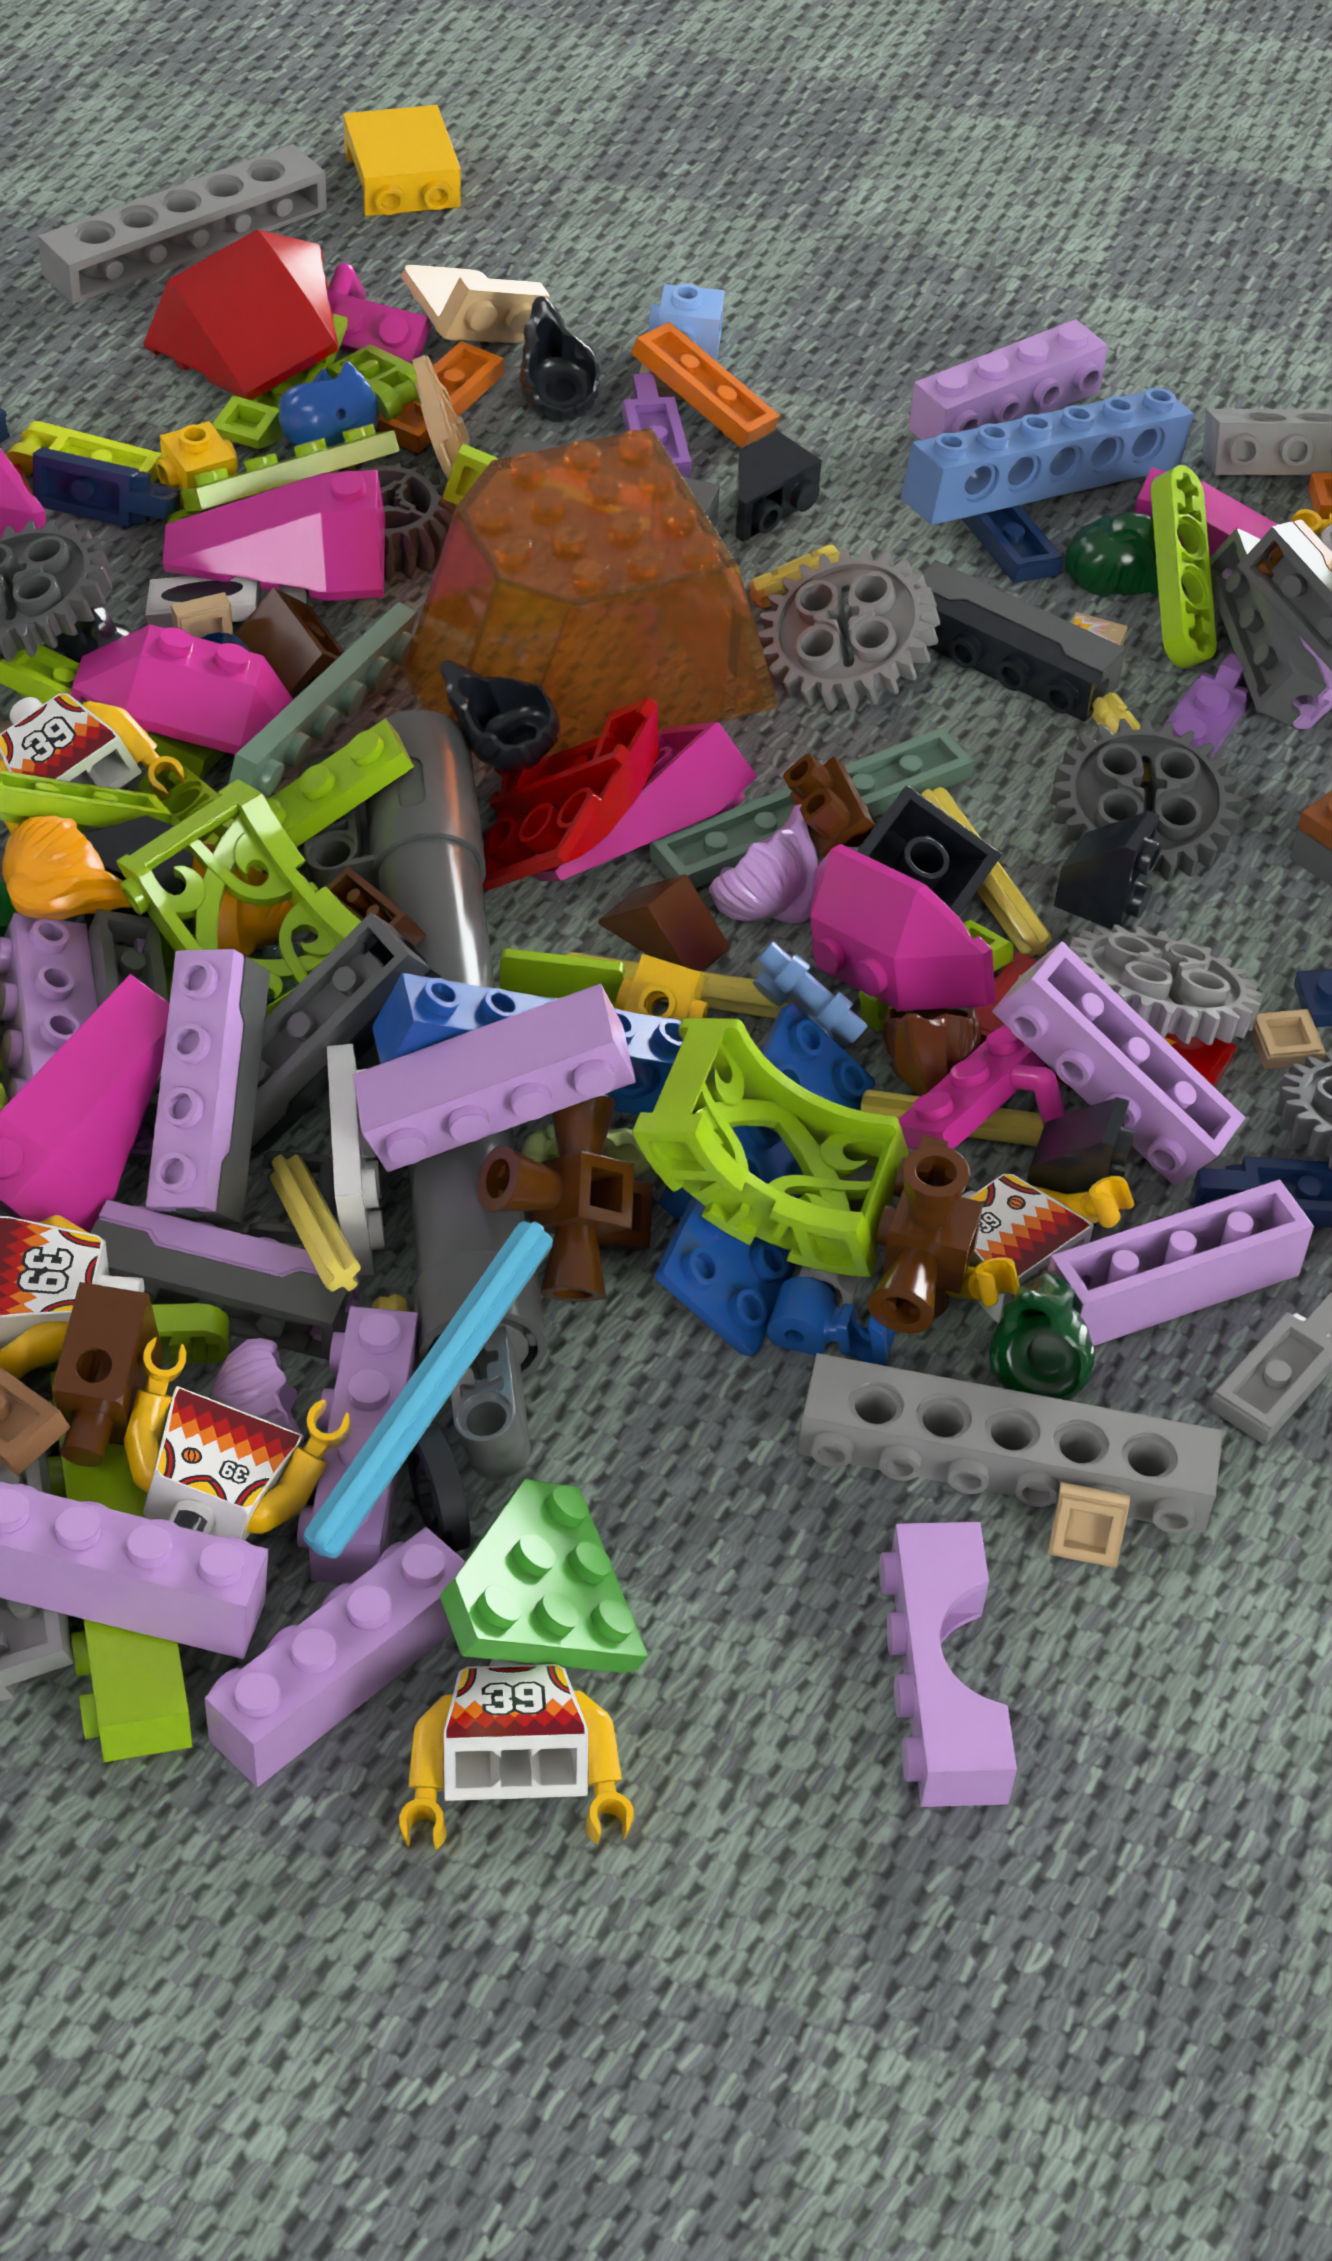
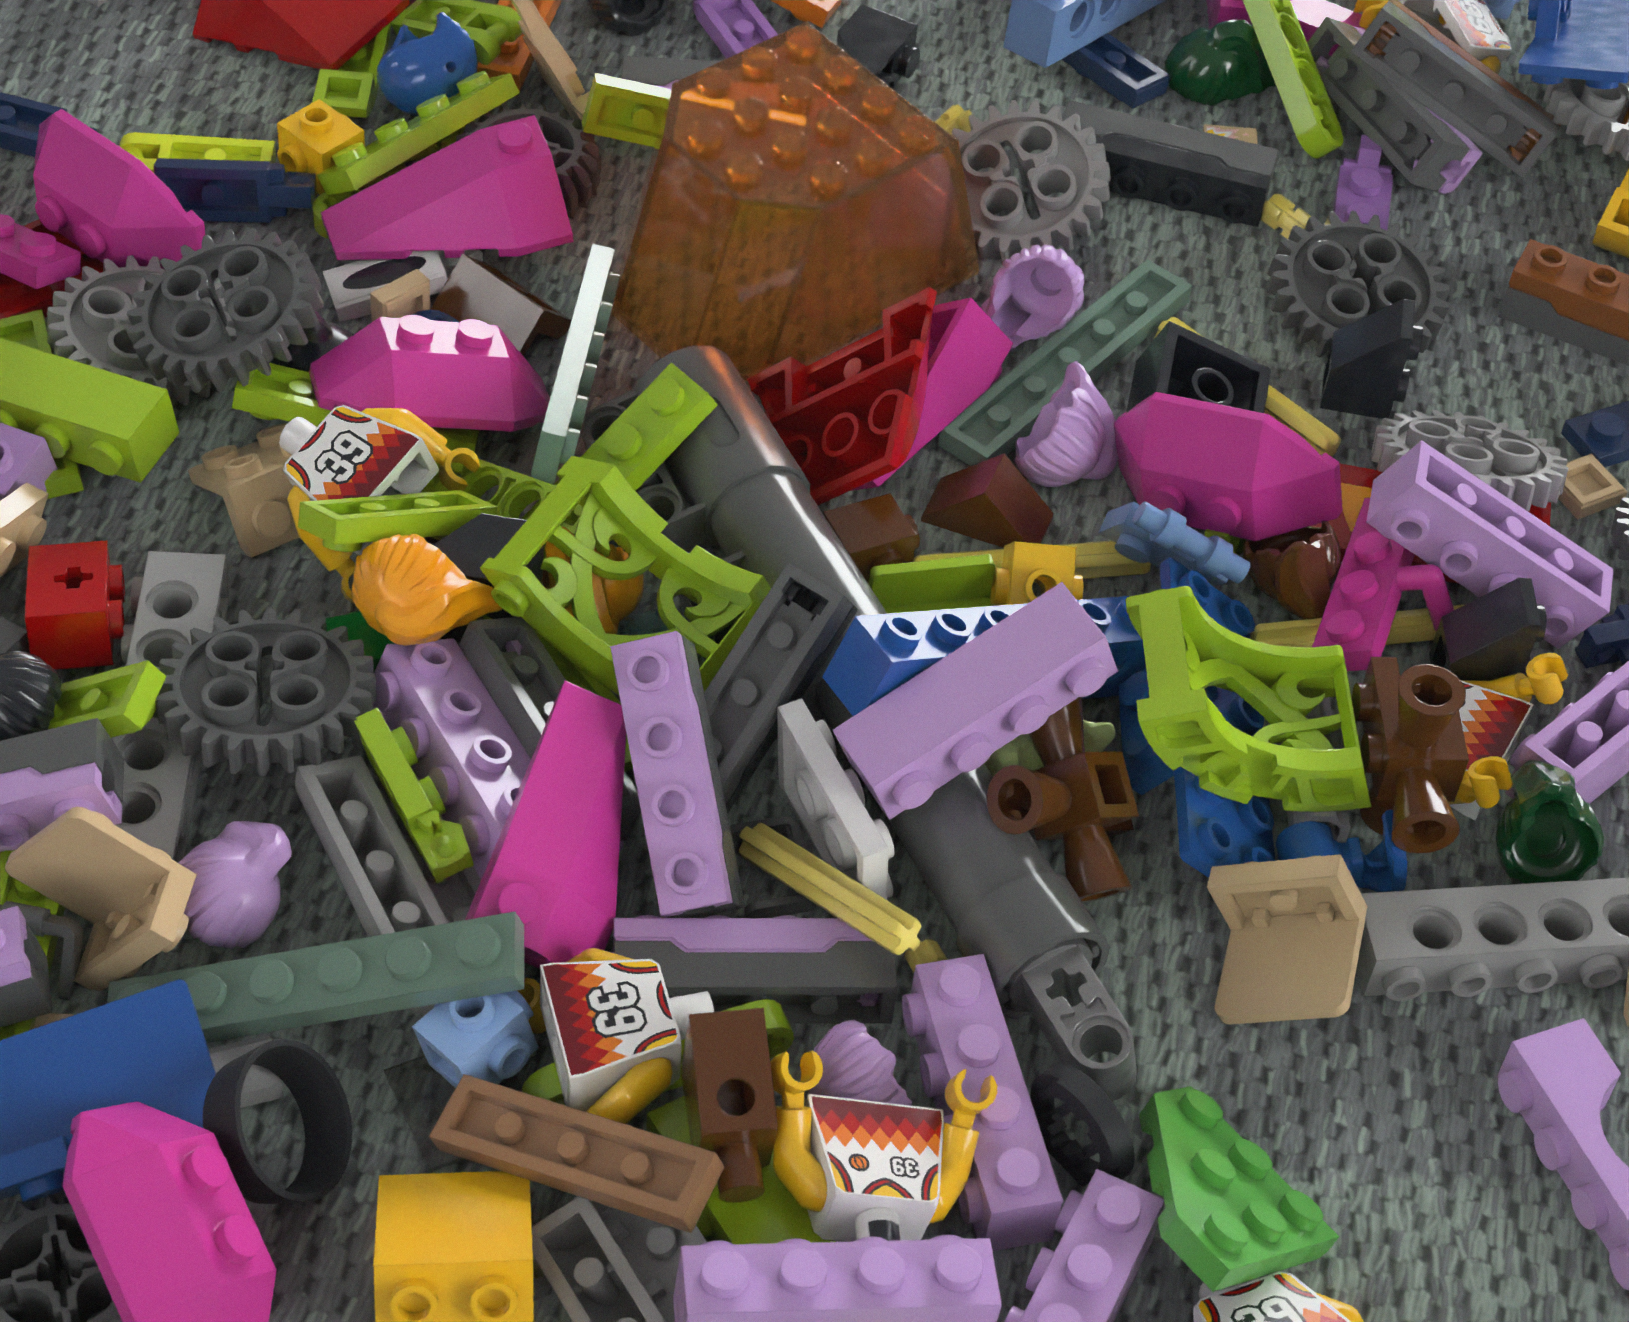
camera: 20 degrees left, 0 degrees up
(364, 898) = (743, 551): reddish brown piece -> none
(427, 1391) = (1051, 1034): medium azure axle -> none
(503, 718) = (766, 338): black hair -> none
(529, 921) = (875, 532): none -> reddish brown brick
(742, 1377) = (1289, 938): none -> tan bracket
(794, 726) = (1035, 293): none -> lavender hair
(829, 803) = (1107, 357): reddish brown hips -> none

